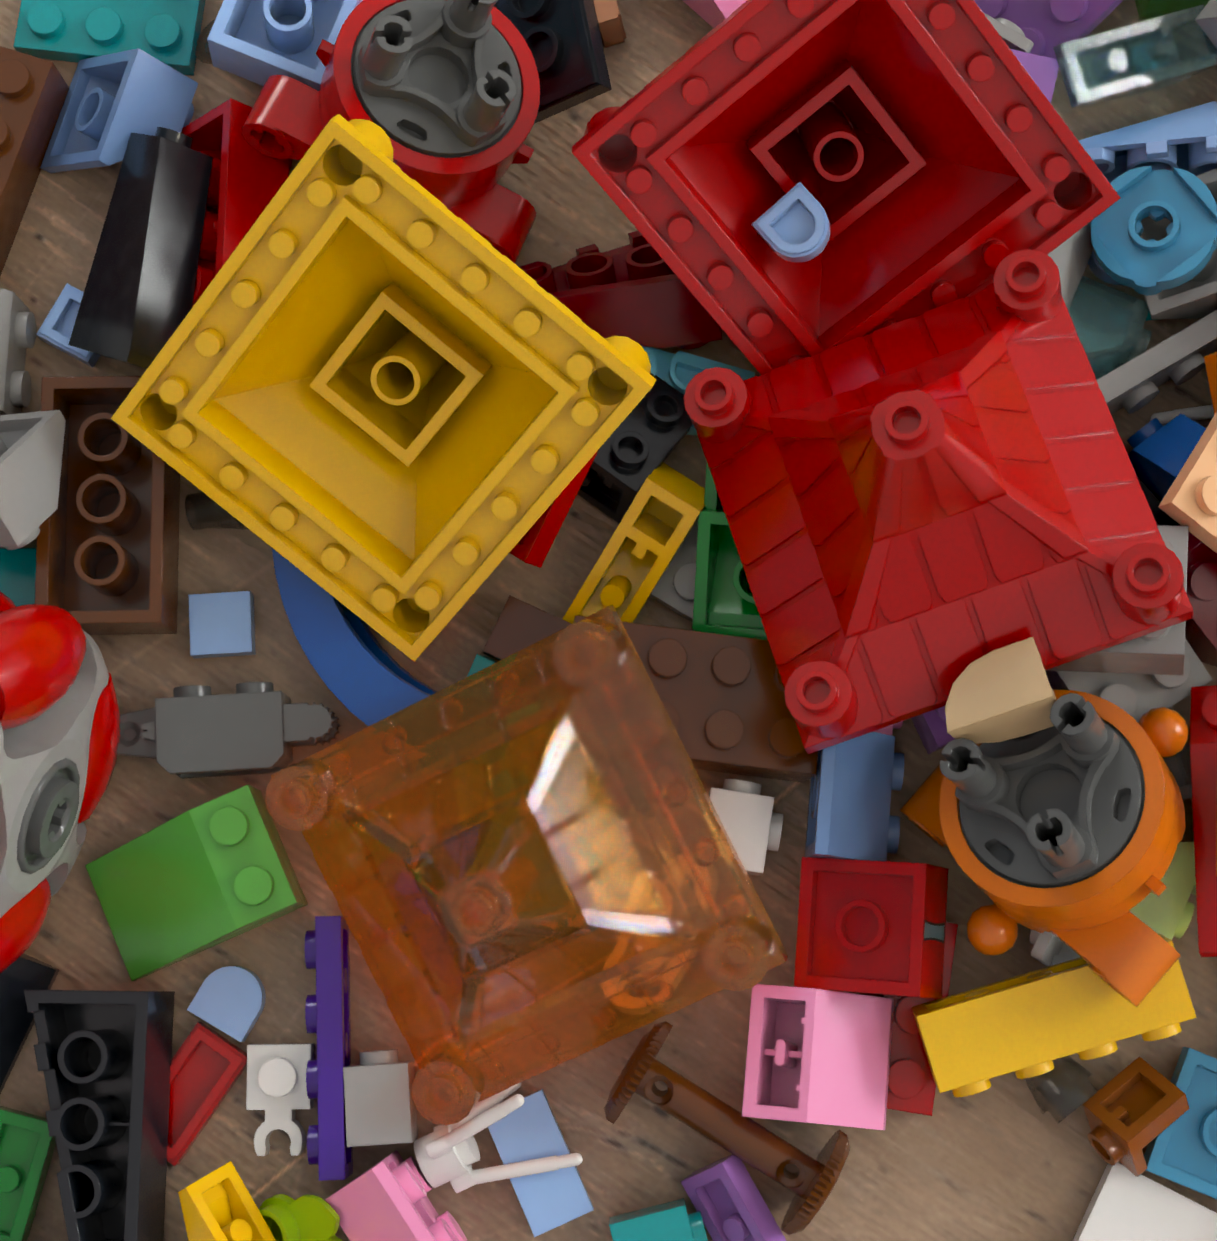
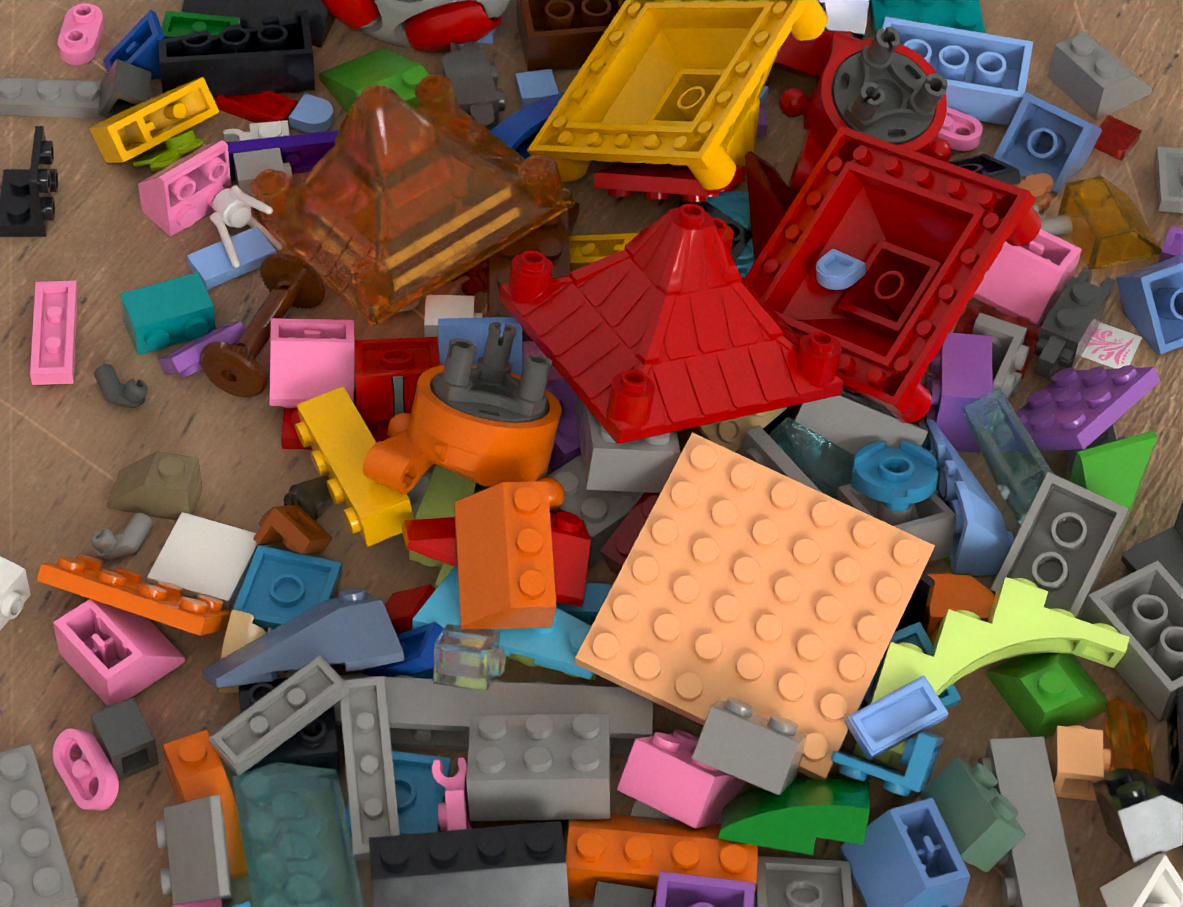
camera: 75 degrees right, 30 degrees down
(1001, 696) = (551, 342): tan brick -> none

